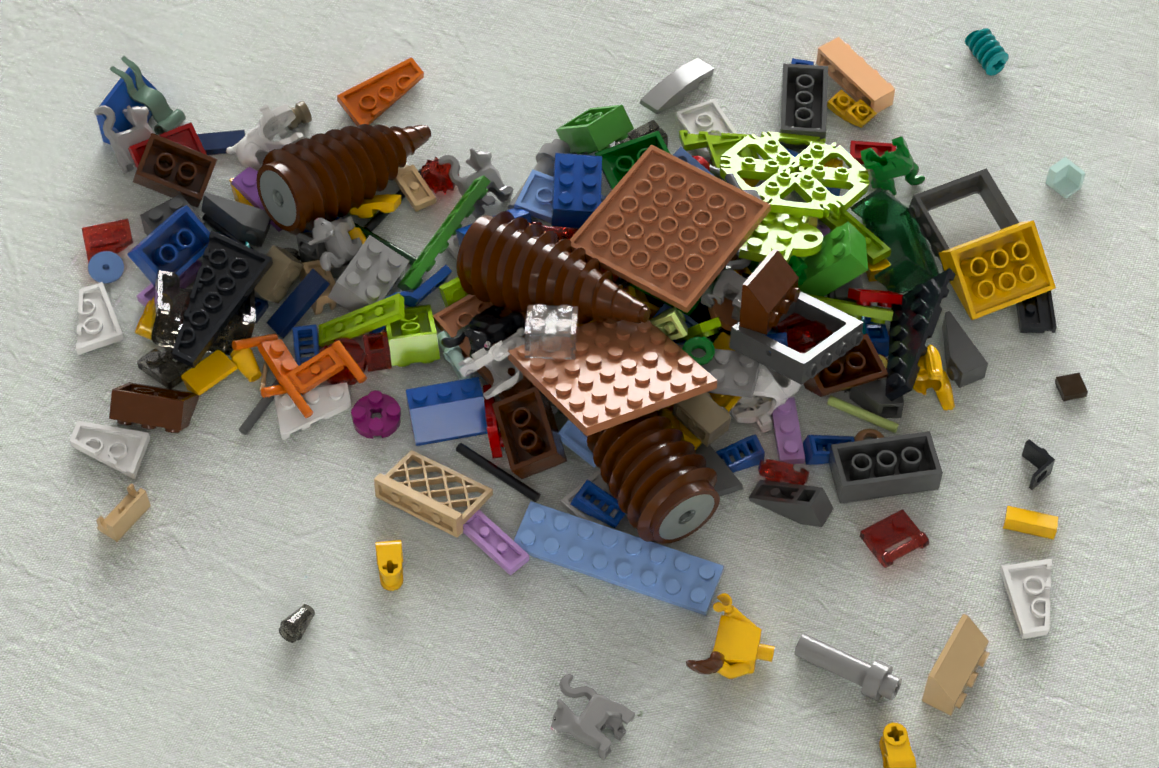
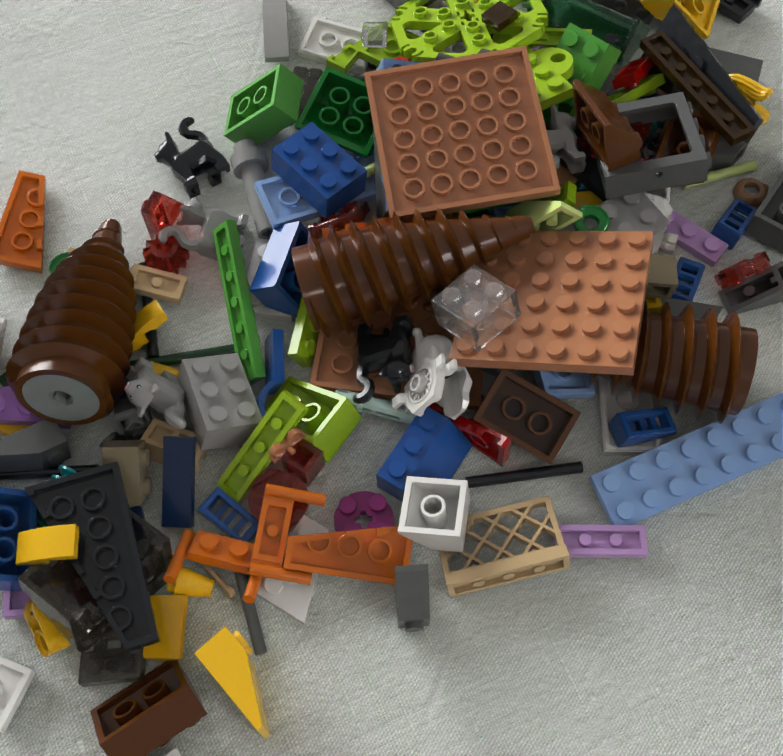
camera: 45 degrees left, 10 degrees up
(191, 268) = (47, 544): none -> yellow slope
(213, 424) = (229, 663): none -> yellow slope
(347, 465) = (412, 597): none -> dark grey slope
(349, 425) = (350, 554): none -> orange wing
(365, 328) = (279, 449): none -> nougat piece
(389, 563) = (540, 646): yellow piece -> none
(413, 437) = (435, 512): none -> white slope
(459, 142) = (159, 212): none -> clear red wing
(521, 131) = (193, 161): none -> black animal
(728, 136) = (374, 34): none -> clear slope
(804, 181) = (499, 16): none -> dark brown tile
(870, 257) = (615, 39): none -> black bar
(892, 334) = (697, 88): none -> dark brown plate

